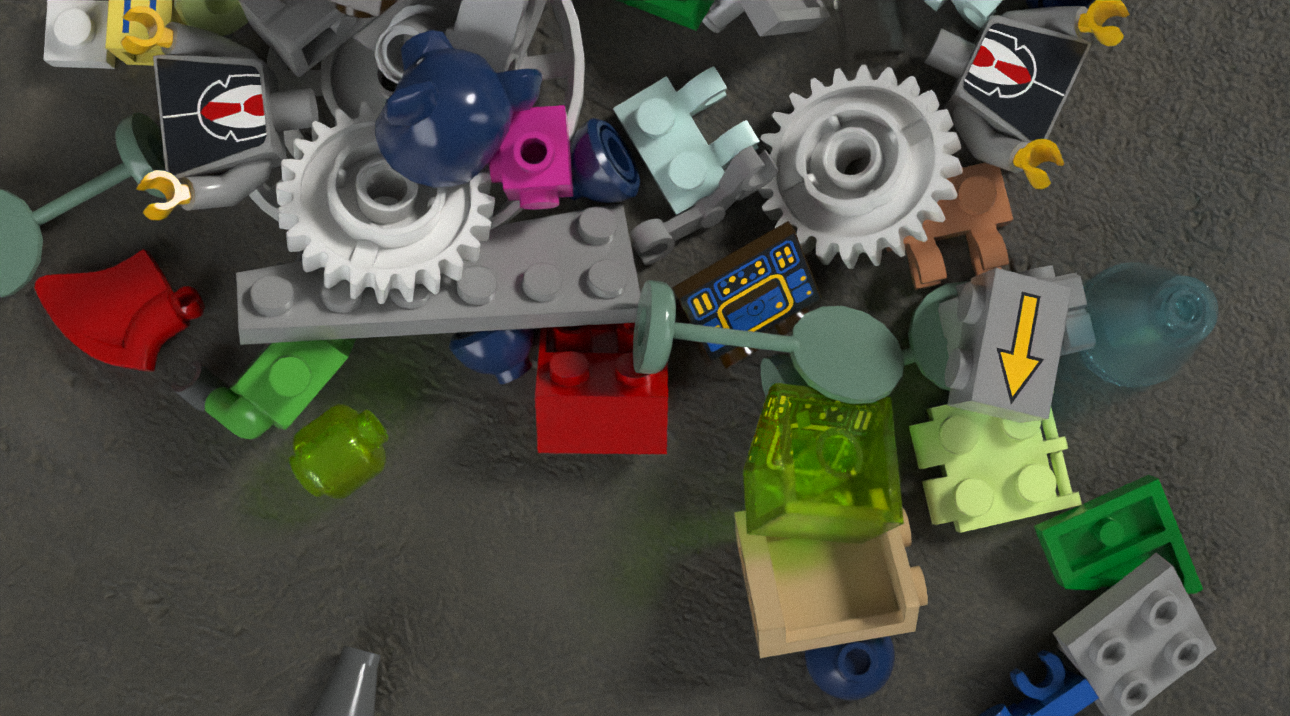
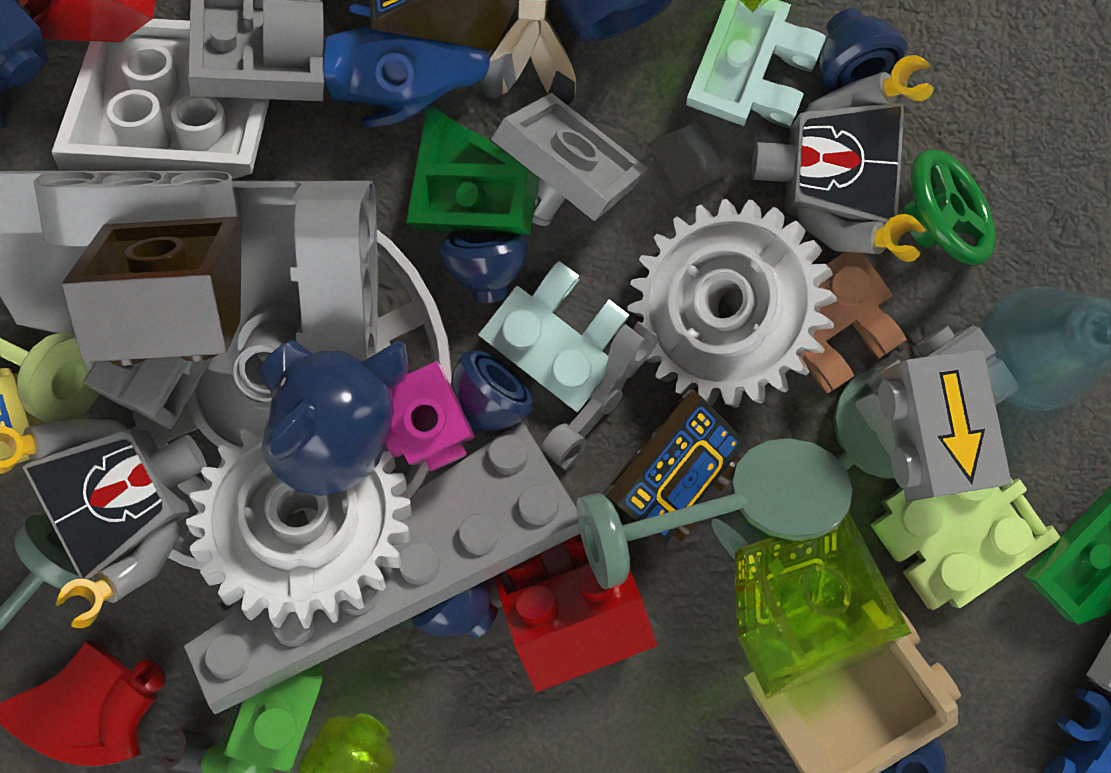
camera: 20 degrees left, 0 degrees up
(645, 42) = (484, 262): none -> dark blue brick
(1091, 160) = (947, 212): none -> green piece

